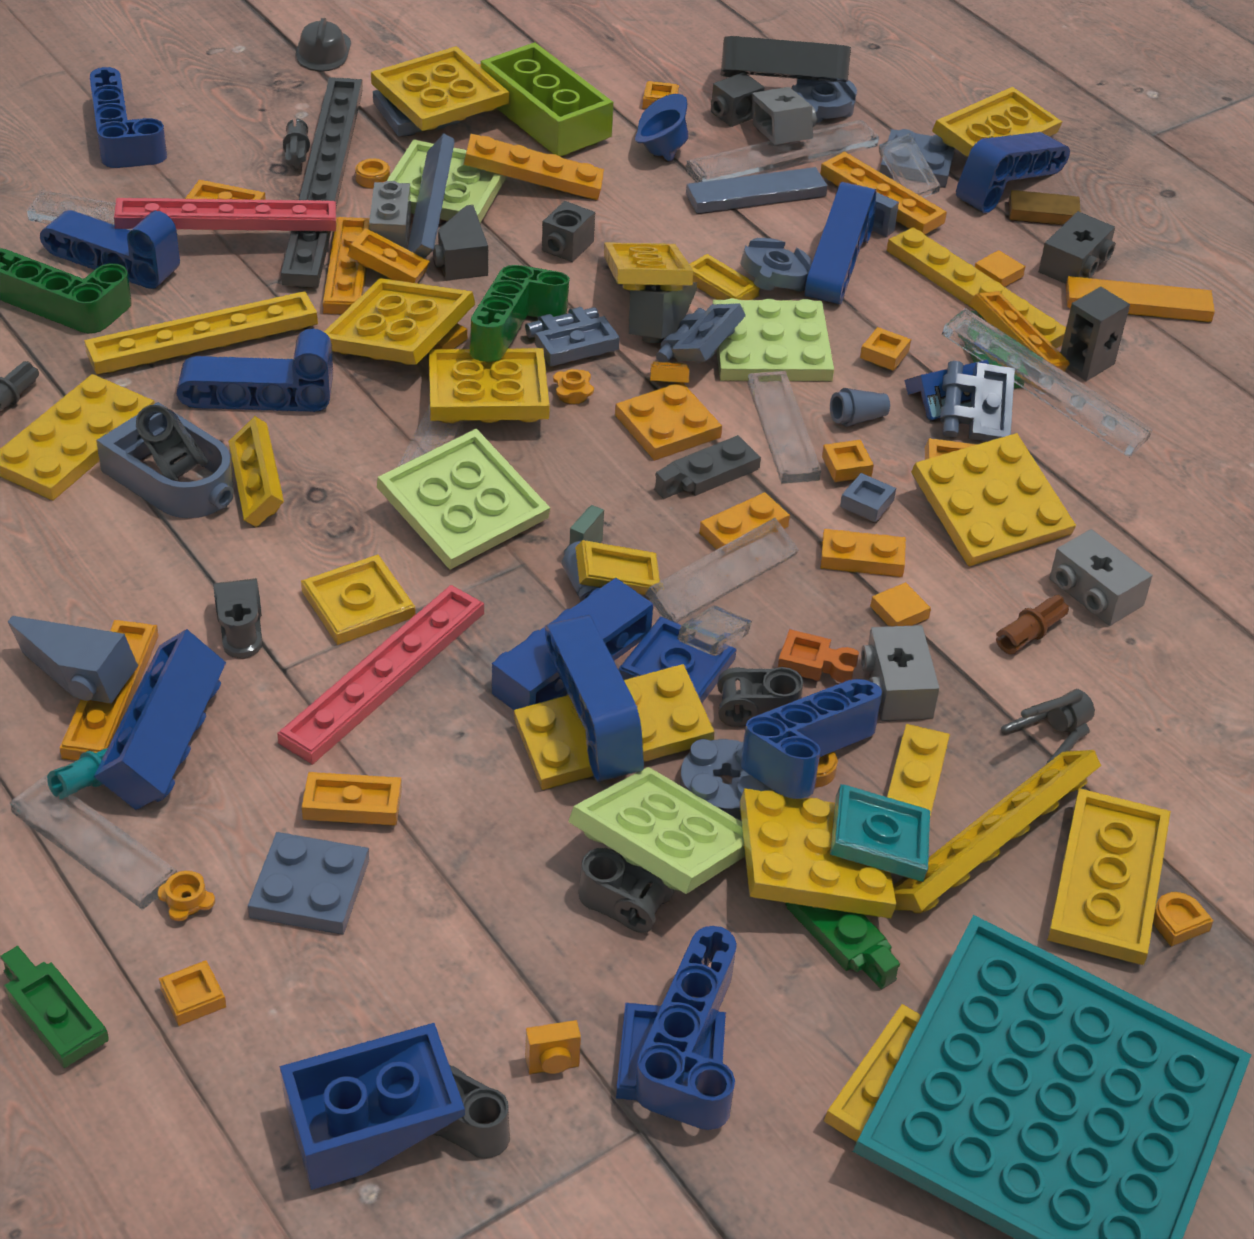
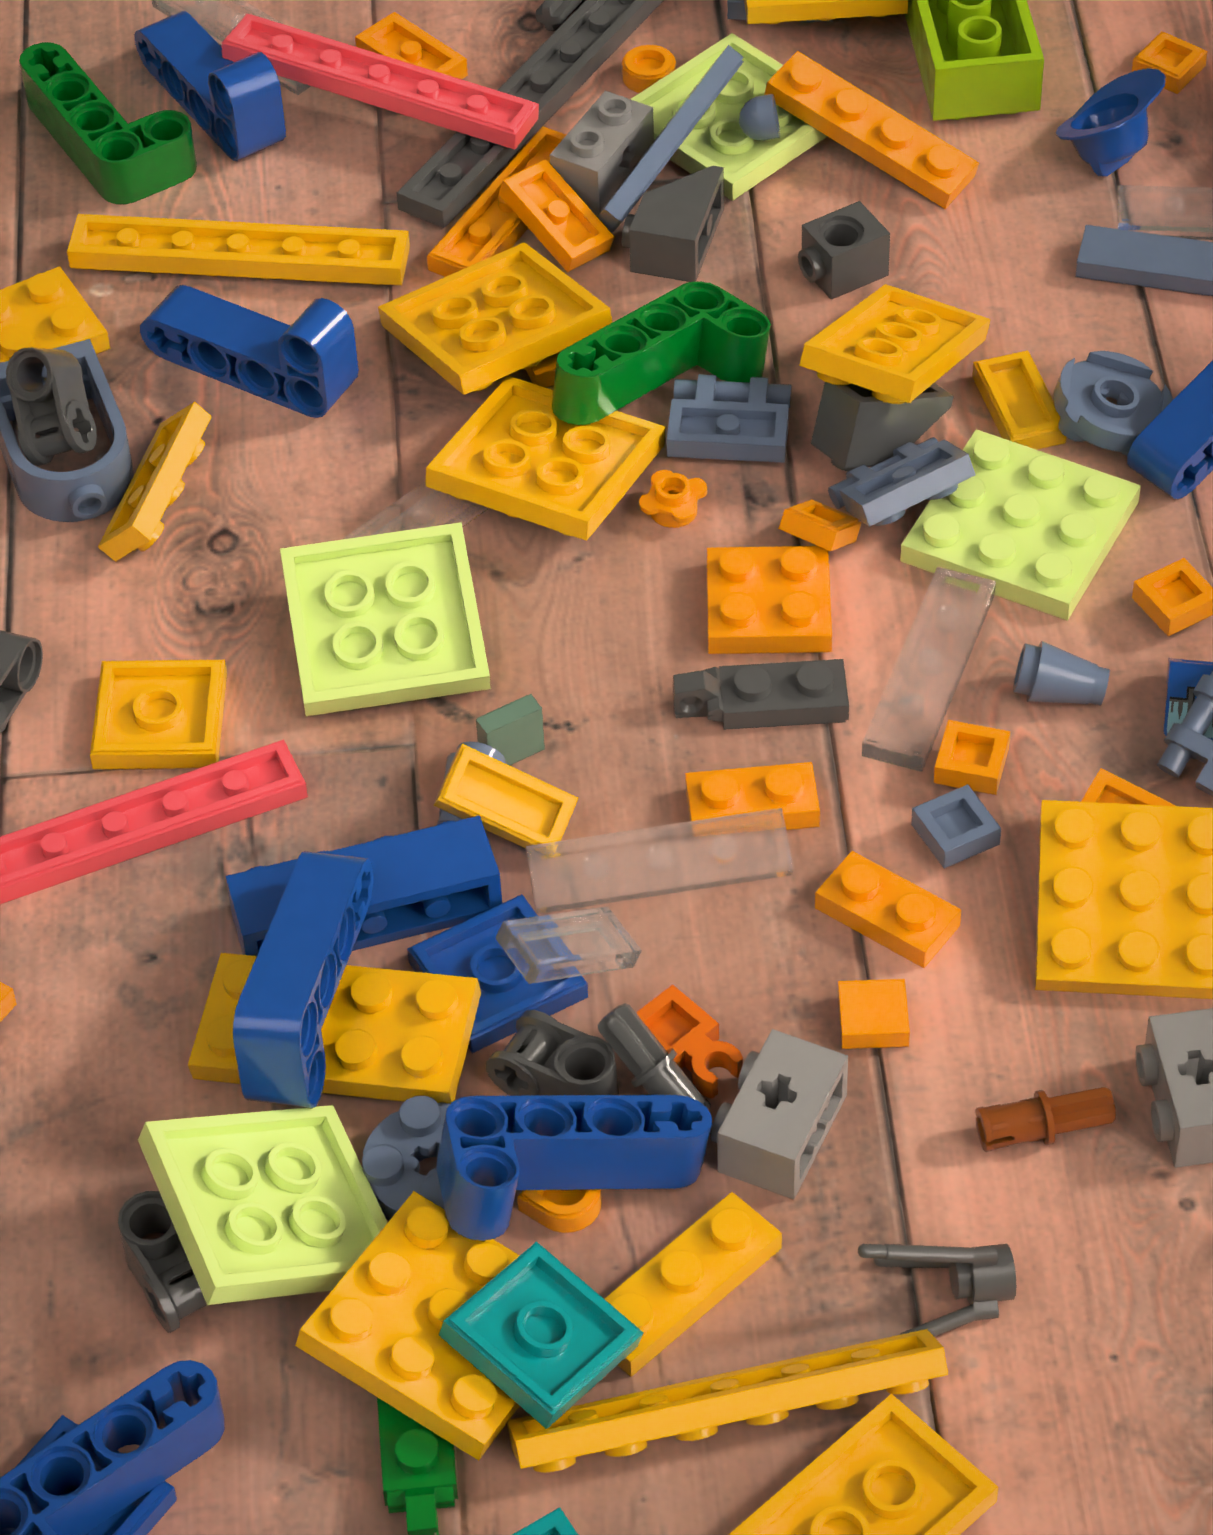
camera: 35 degrees right, 5 degrees up
(473, 174) = (760, 118): none -> sand blue hinge
(810, 666) = (645, 1056): none -> dark grey axle

